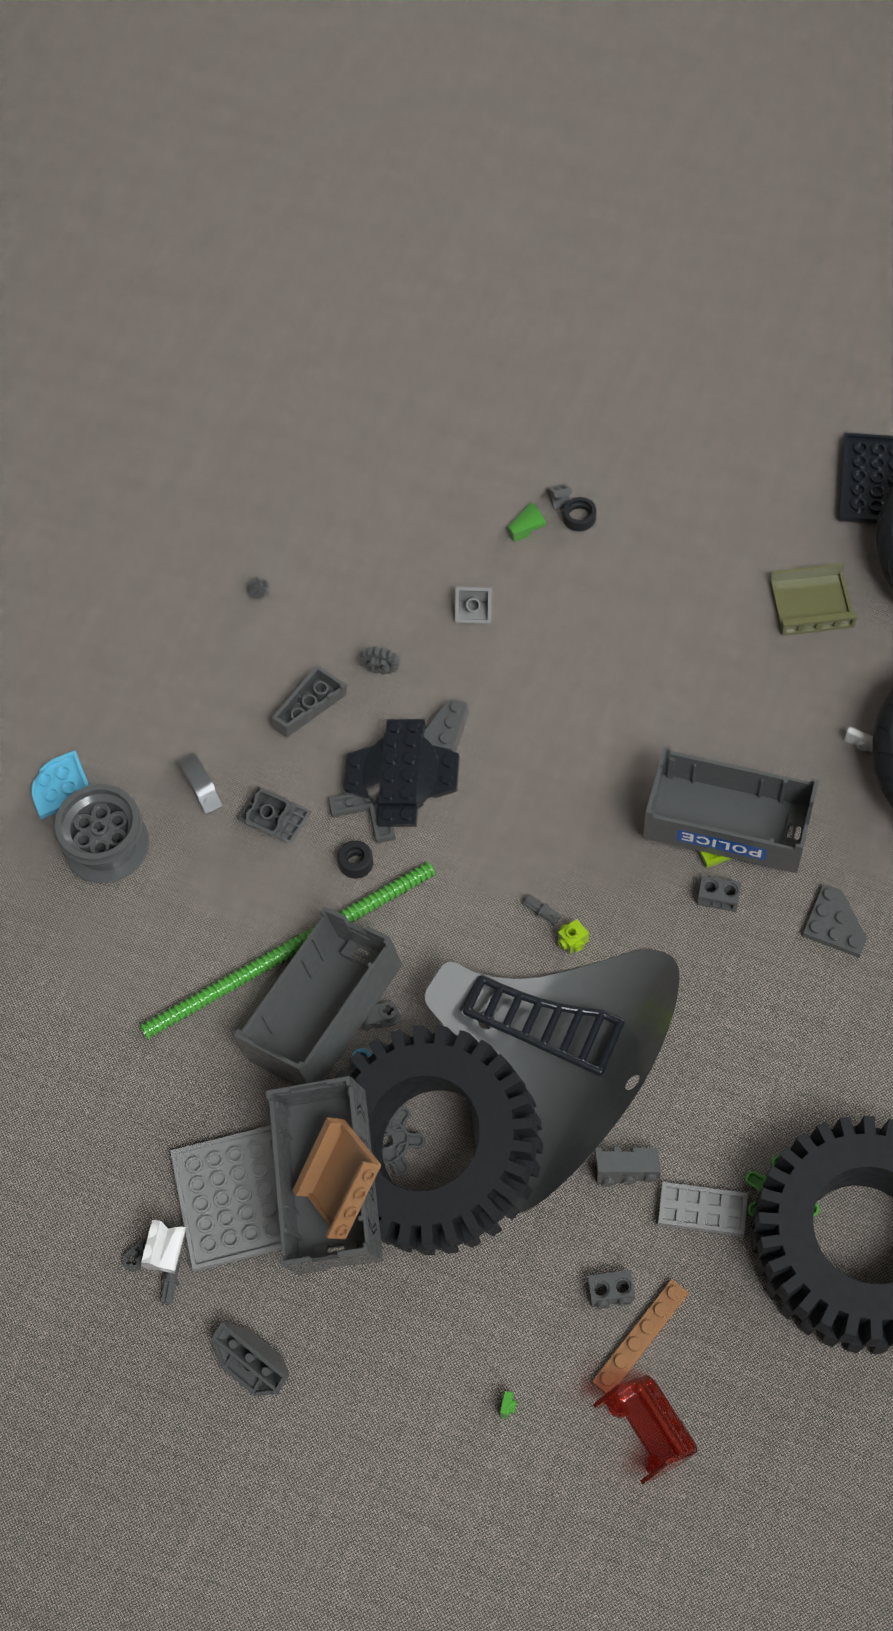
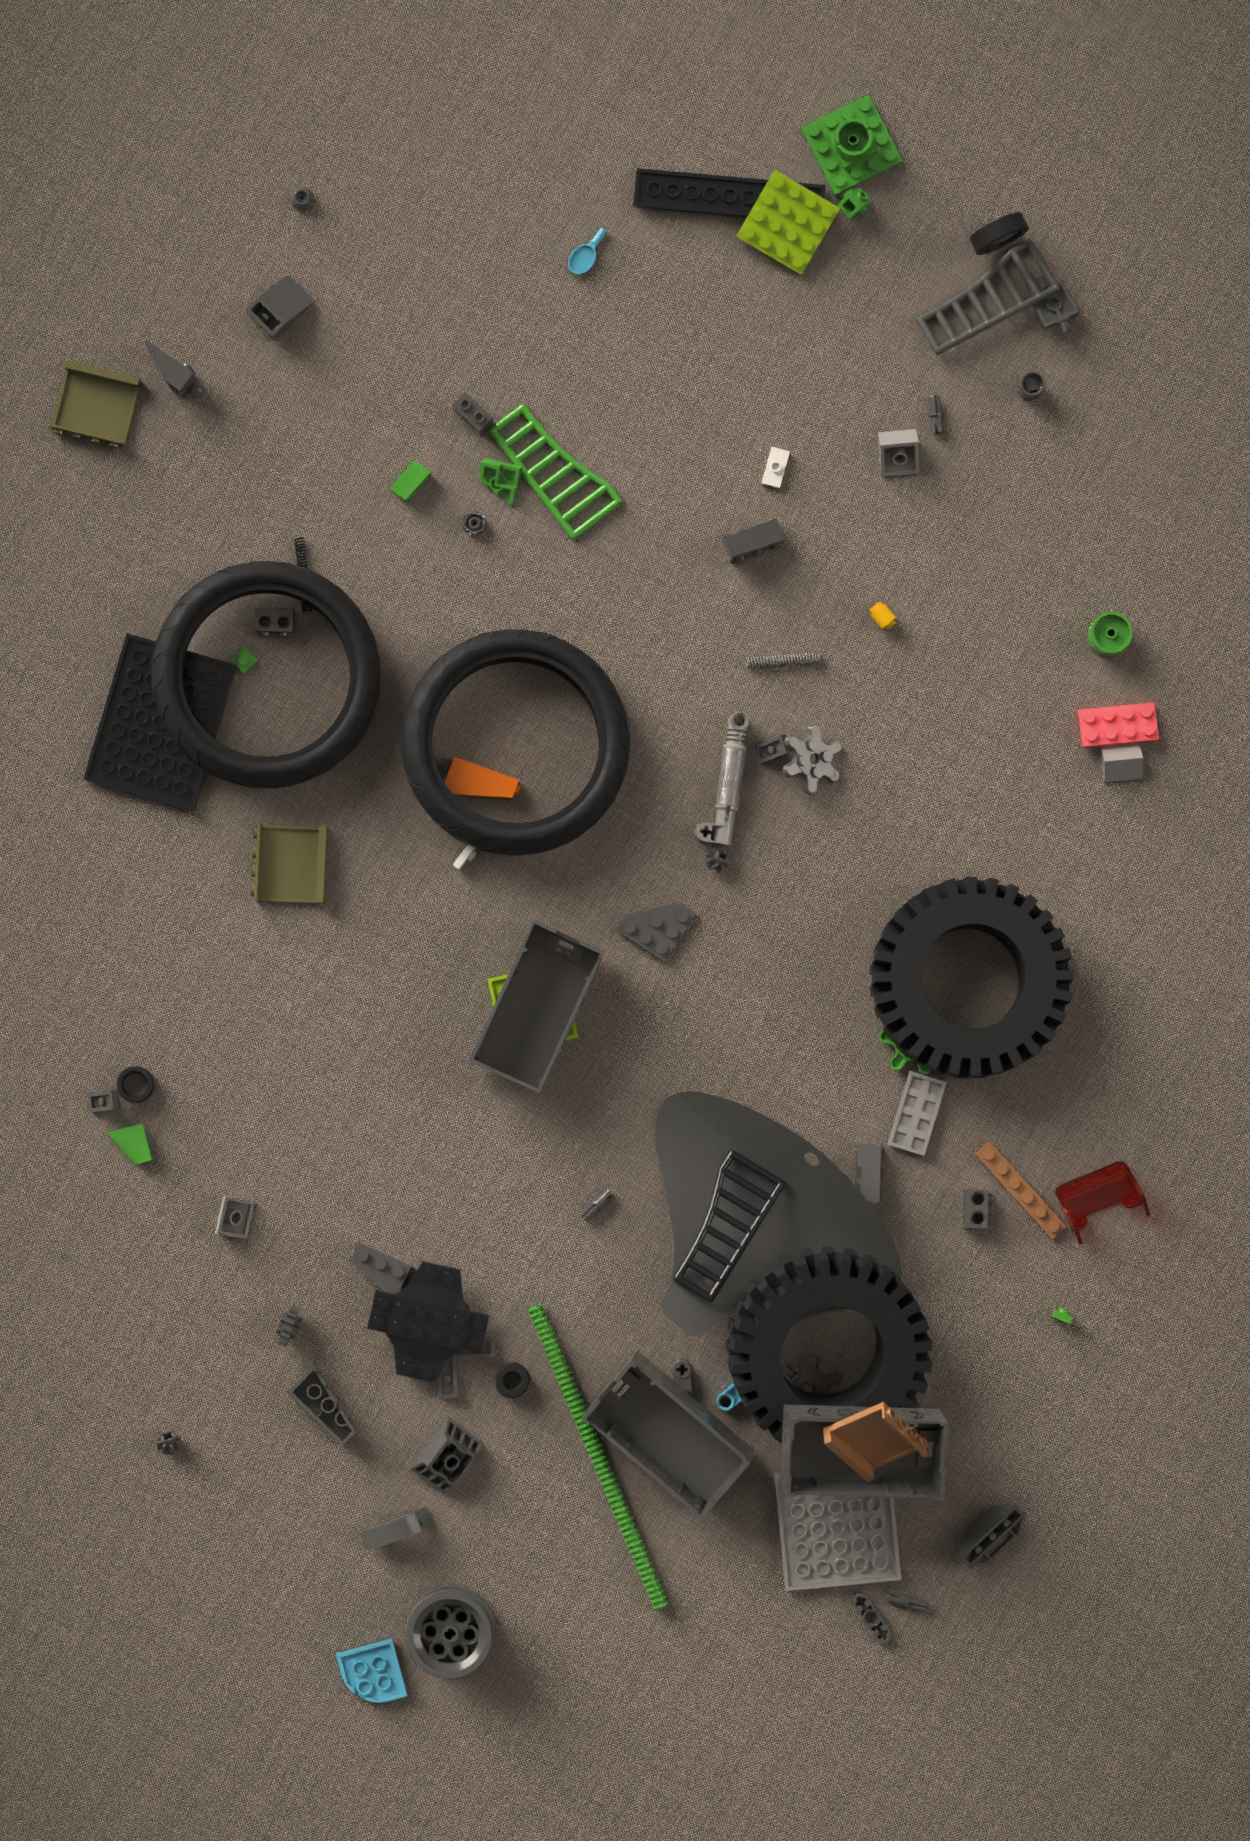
camera: 85 degrees left, 25 degrees up
(163, 1247) = (882, 1604): white piece -> none
(573, 937) = (632, 1174): lime brick -> none
(718, 898) = (614, 1033): dark grey brick -> none

